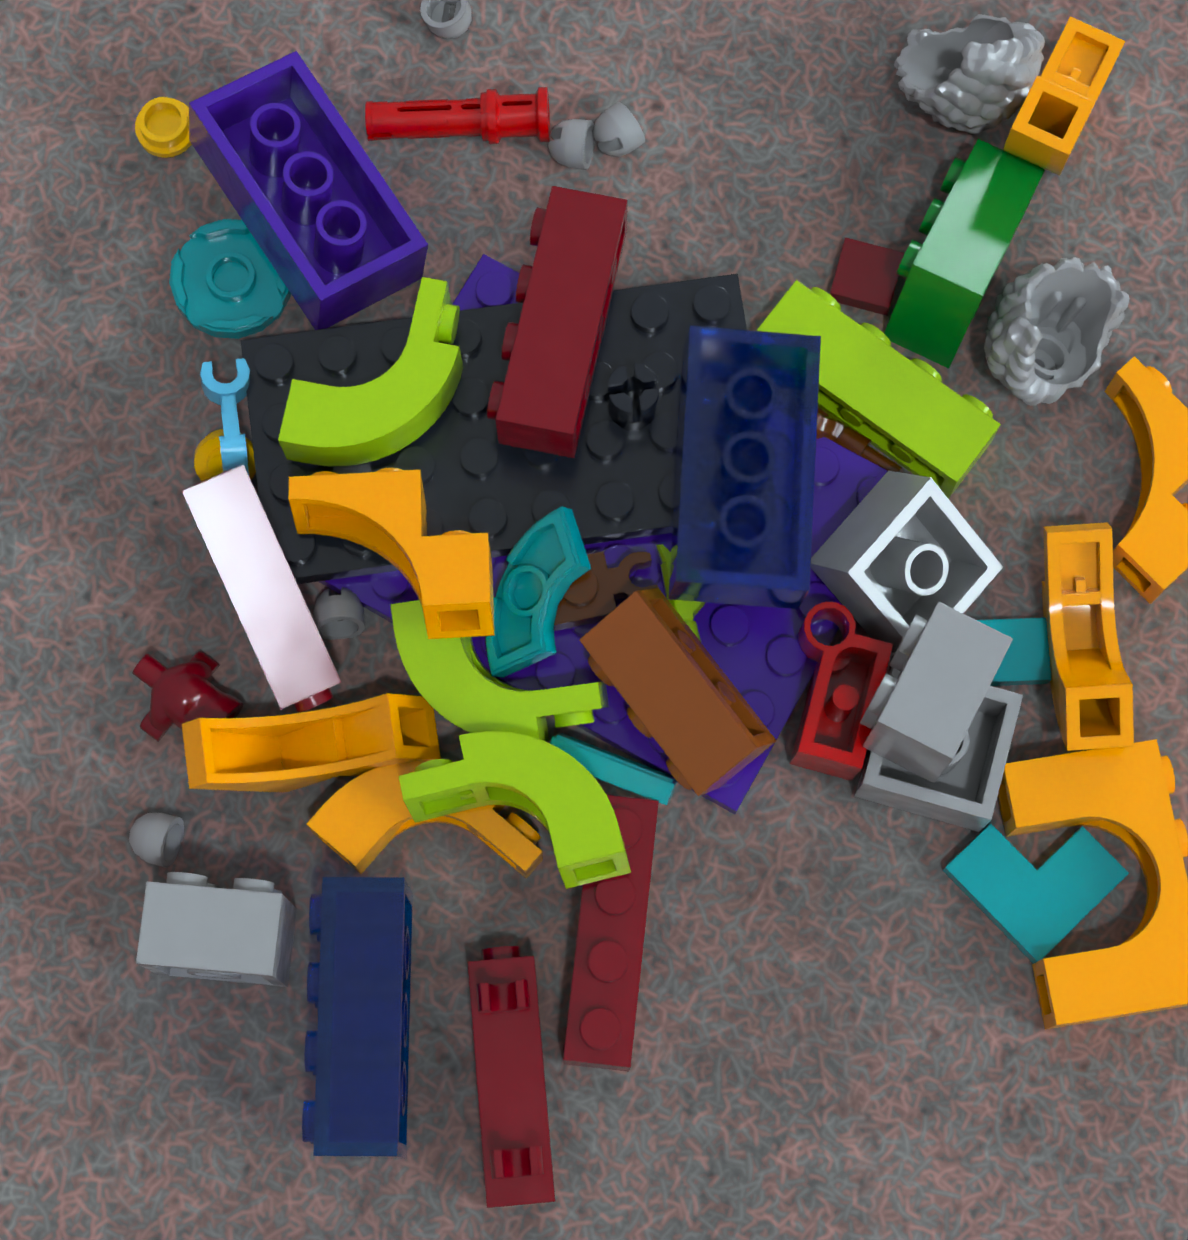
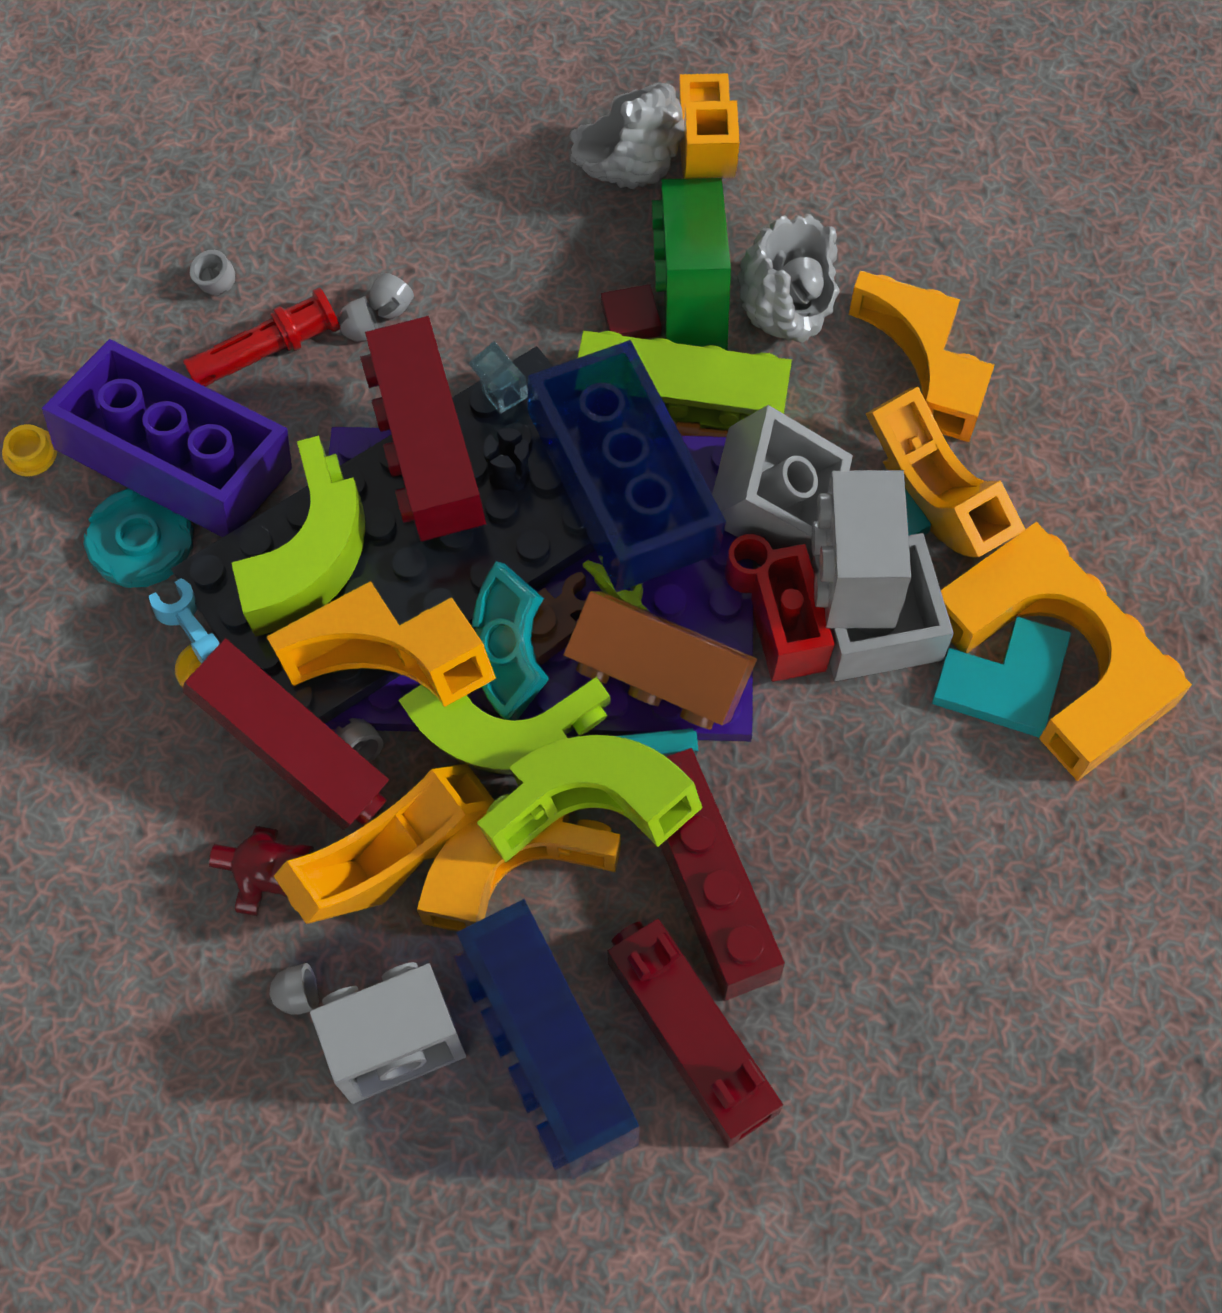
camera: 25 degrees left, 10 degrees down
(670, 300) = (499, 377): none -> clear light blue piece
(1064, 337) = (811, 276): none -> light grey hinge

